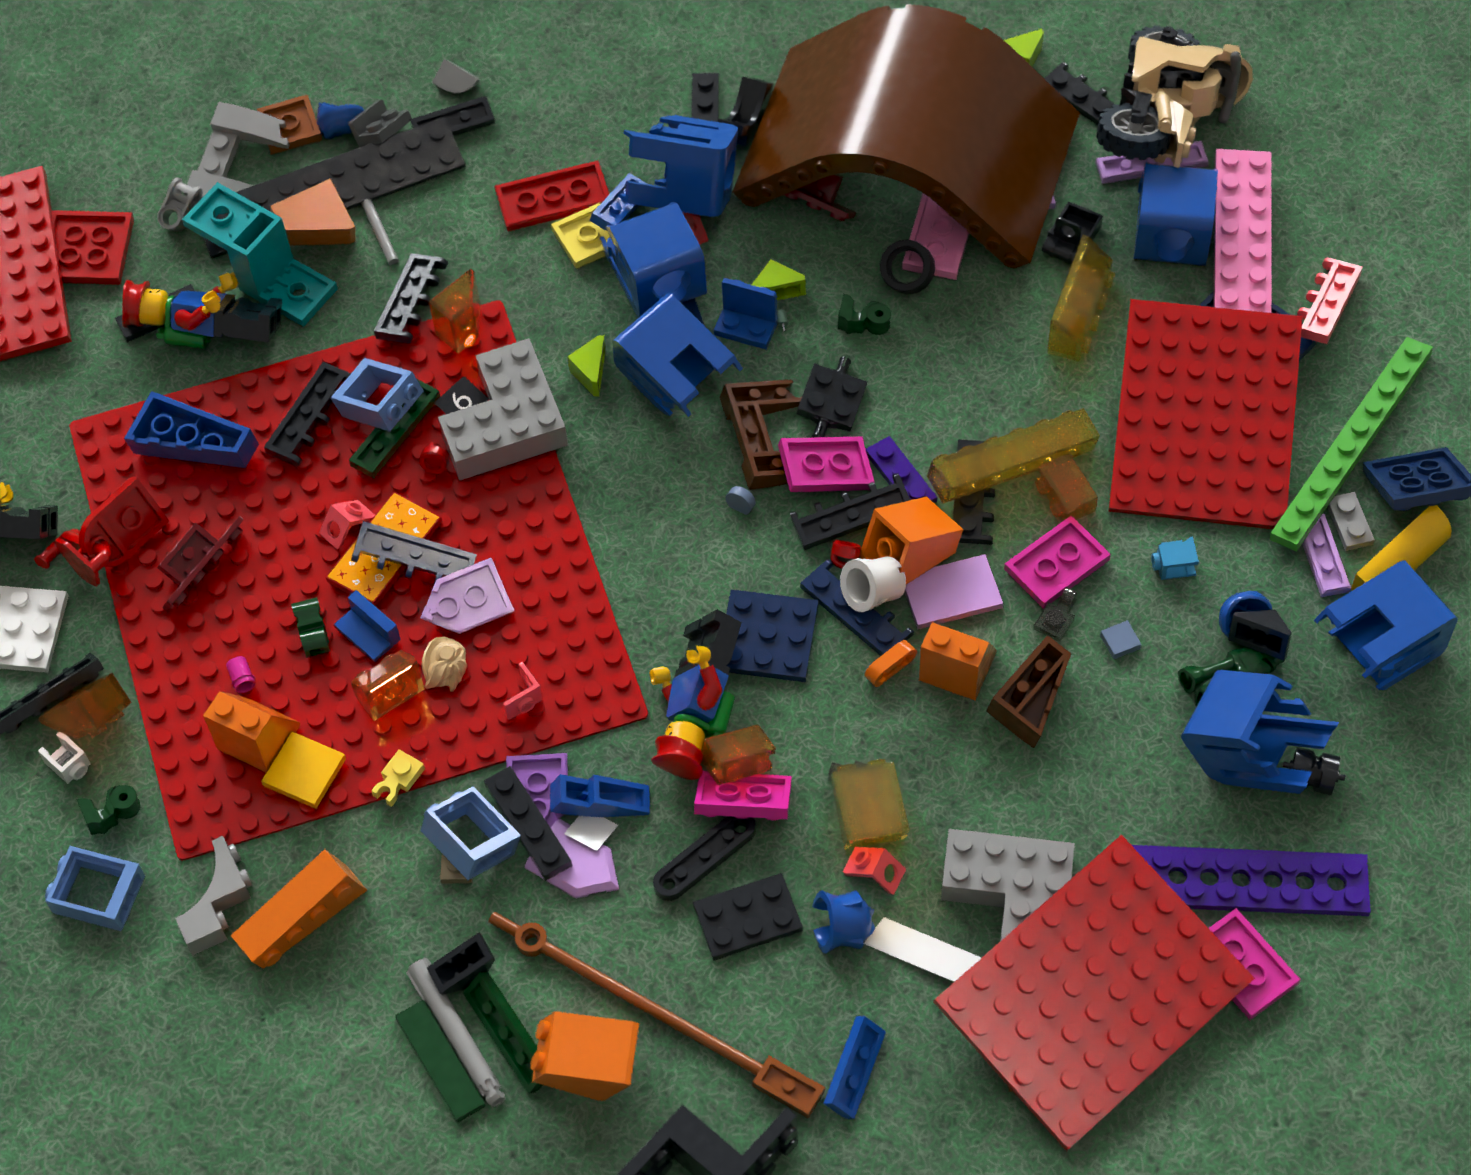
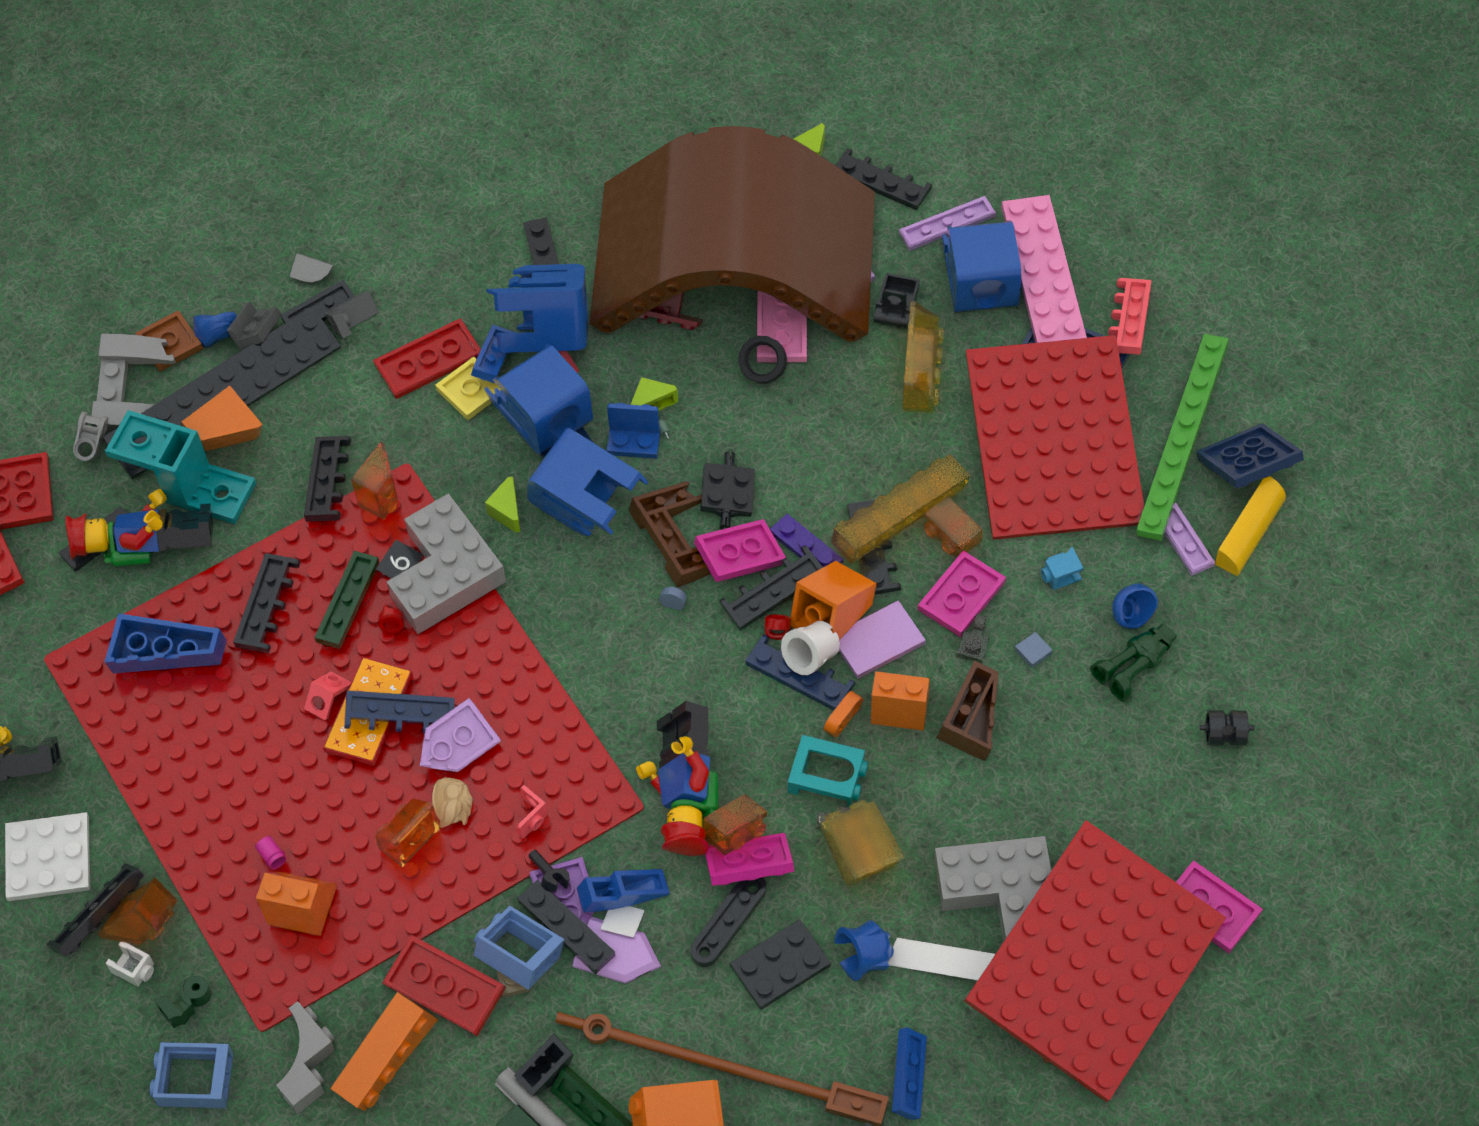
camera: 15 degrees left, 0 degrees up
(108, 533) = (114, 752): red plate -> none
(191, 555) = (195, 756): dark red bracket -> none
(303, 770) = (352, 925): yellow tile -> none
(311, 627) = (323, 796): dark green leg -> none
(363, 381) = (306, 565): medium blue window -> none
(368, 627) = (374, 784): blue panel -> none
(380, 232) = (280, 423): light grey bar -> none
(382, 855) = (444, 985): none -> red tile
(398, 774) = (439, 909): light yellow plate -> none
(485, 133) = (351, 313): none -> dark grey bracket
(525, 762) = (551, 875): none -> black bar
(749, 108) = (583, 243): black arch -> none
(773, 635) = (735, 711): dark blue plate -> none
(872, 746) = (846, 790): none -> teal panel
(872, 864) = (876, 893): coral bracket -> none
(873, 317) = (745, 411): dark green leg -> none
(1168, 92) = (949, 158): piece -> none
(1242, 744) = (1161, 716): blue piece -> none
(1257, 864) = (1199, 820): dark purple plate -> none
(1261, 632) = (1153, 617): black slope -> none
(1350, 521) = (1199, 505): light grey plate -> none
(1392, 624) = (1260, 587): blue piece -> none

